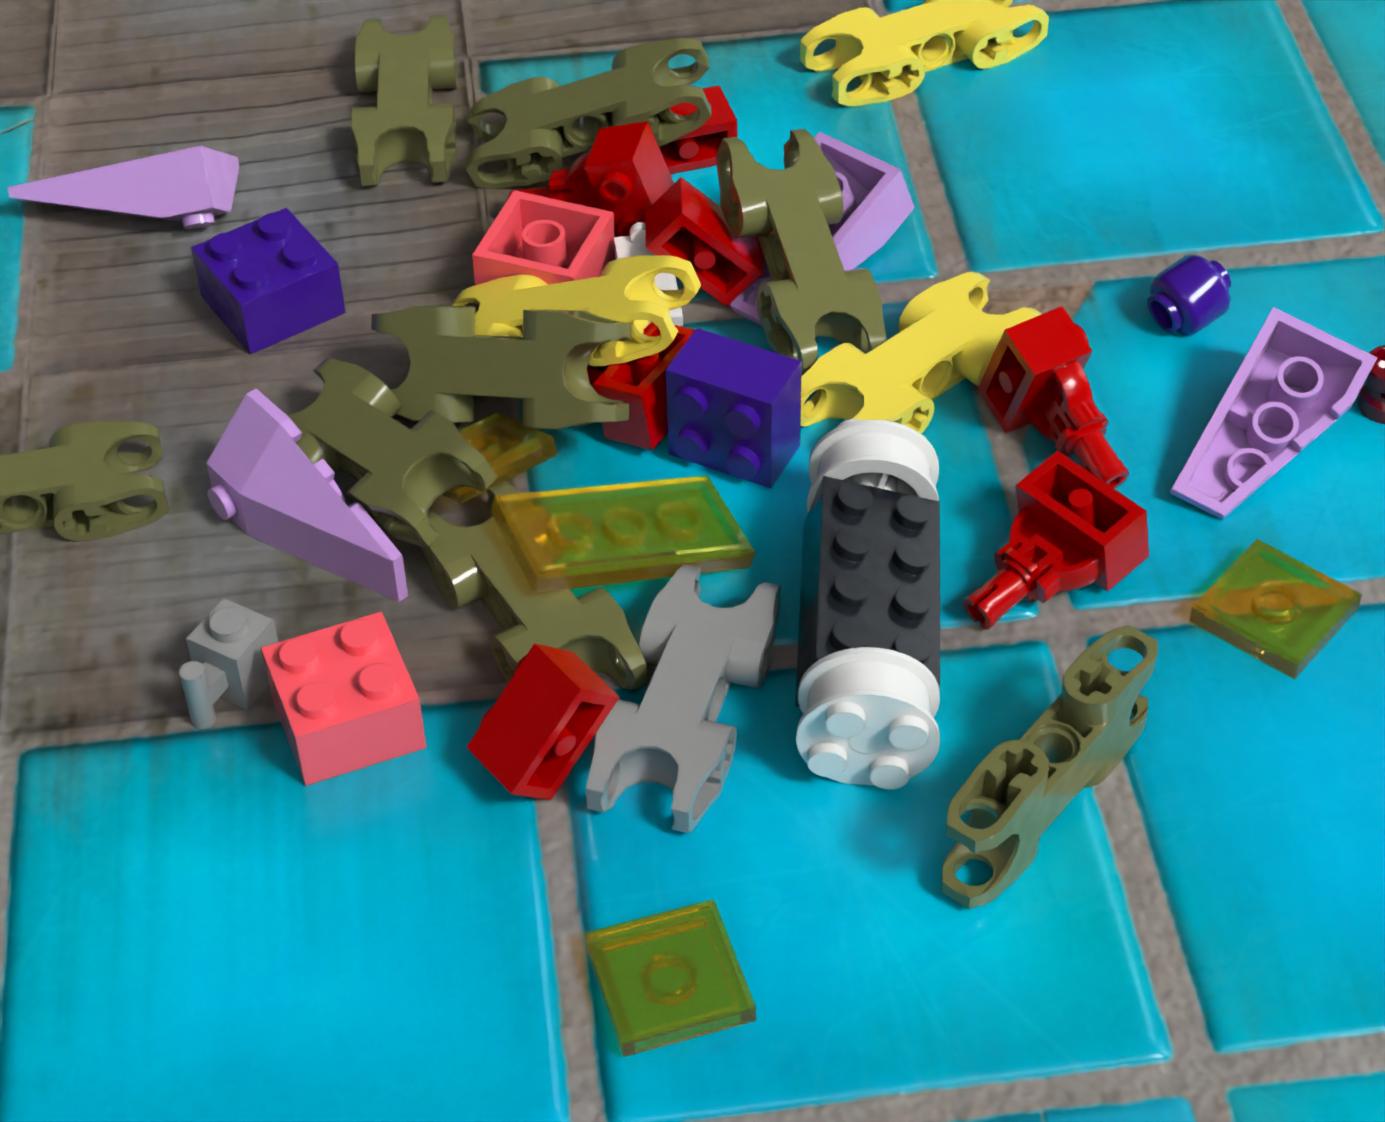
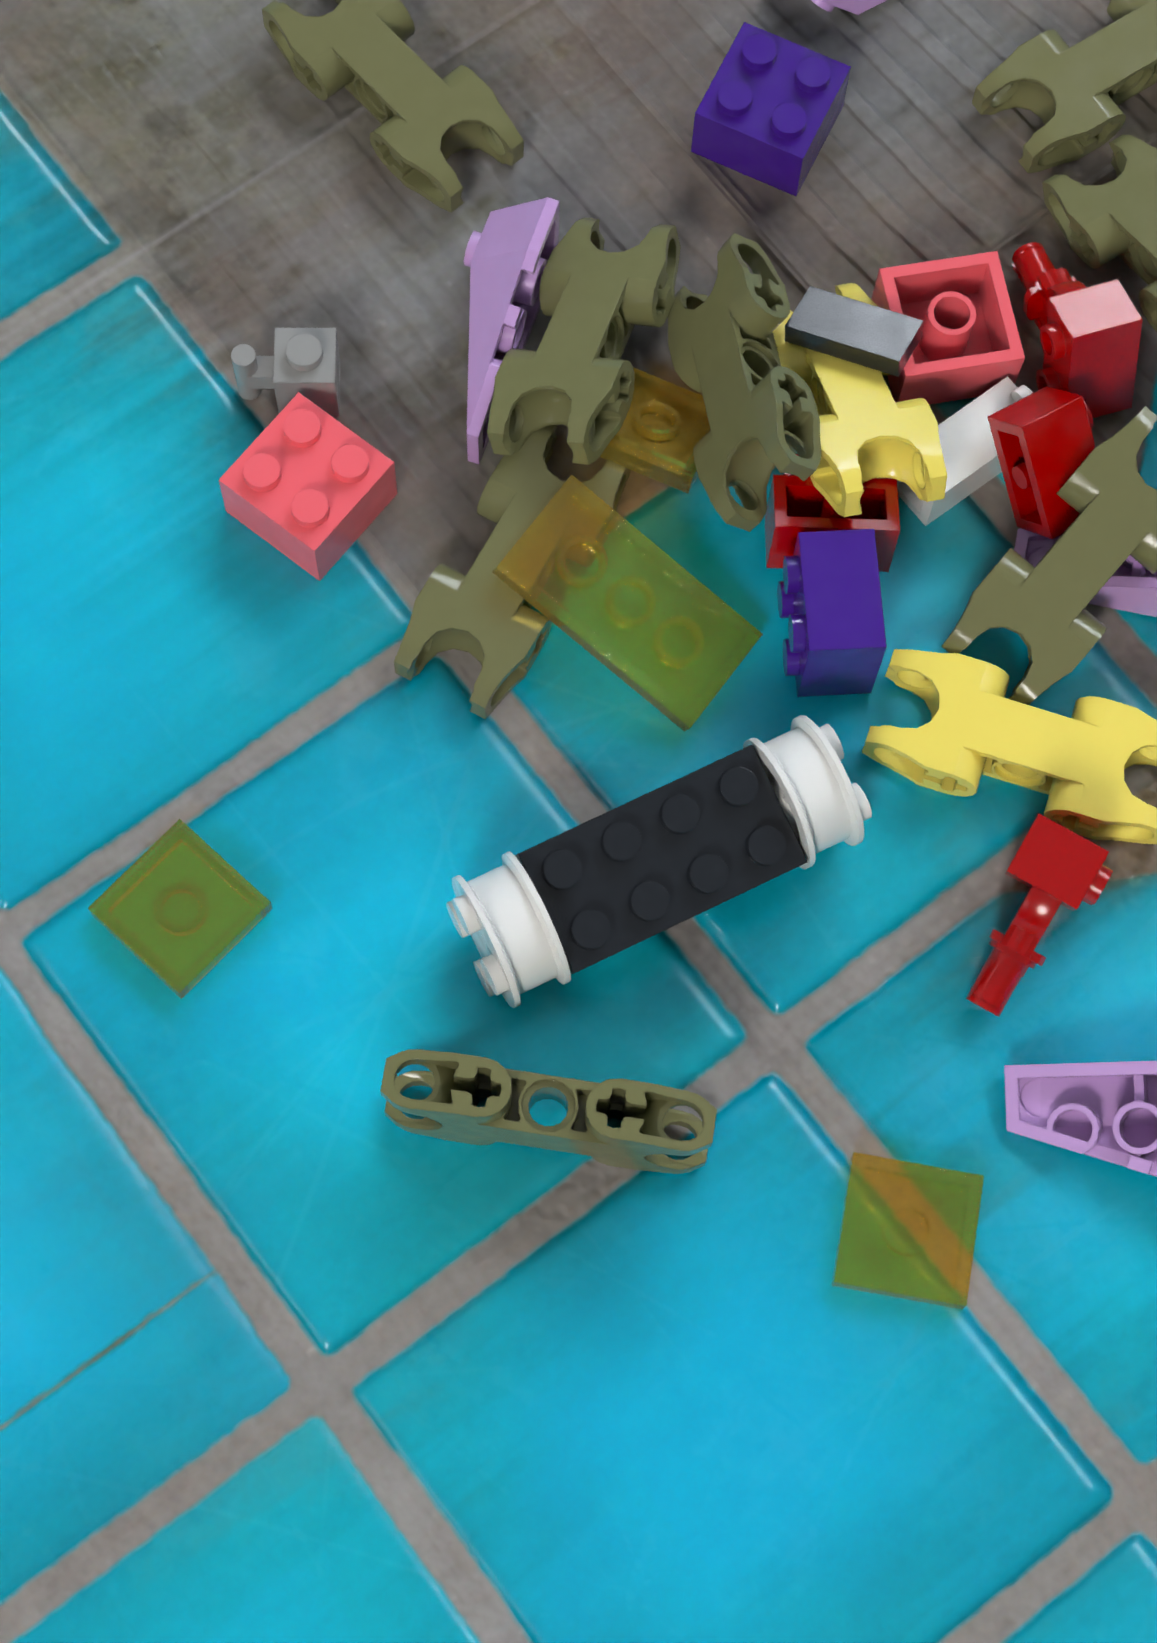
camera: 55 degrees right, 25 degrees up
(516, 282) = (854, 331): none -> tile
(542, 722) = (353, 662): red brick -> none
(675, 729) = (438, 768): light grey piece -> none
(1063, 538) = (849, 994): red brick -> none

